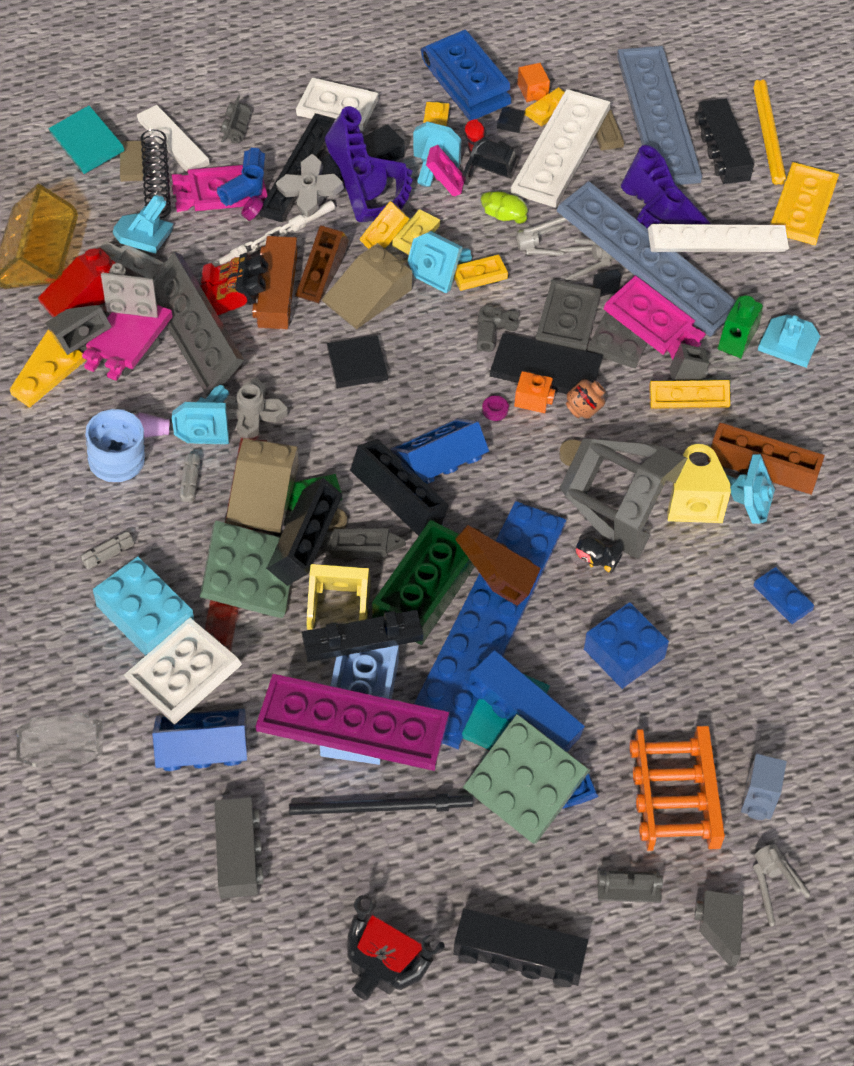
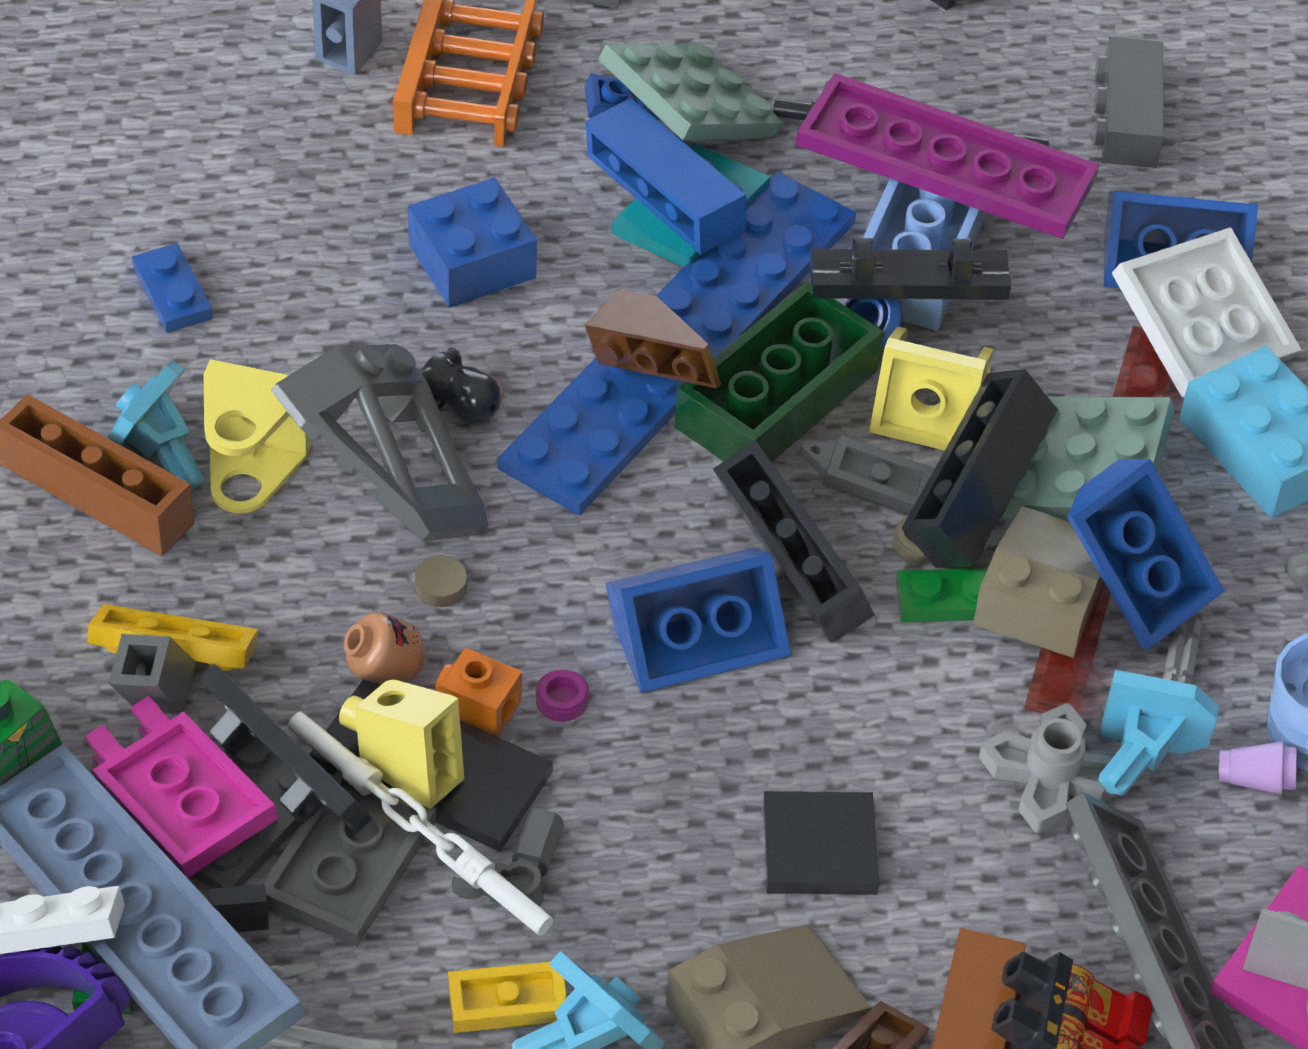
camera: 170 degrees left, 5 degrees down
(216, 491) = (1143, 549): none -> blue slope
(559, 342) = (409, 737): none -> light yellow torso
(572, 335) = (471, 863): none -> white piece
(612, 333) = (312, 785): none -> black hinge

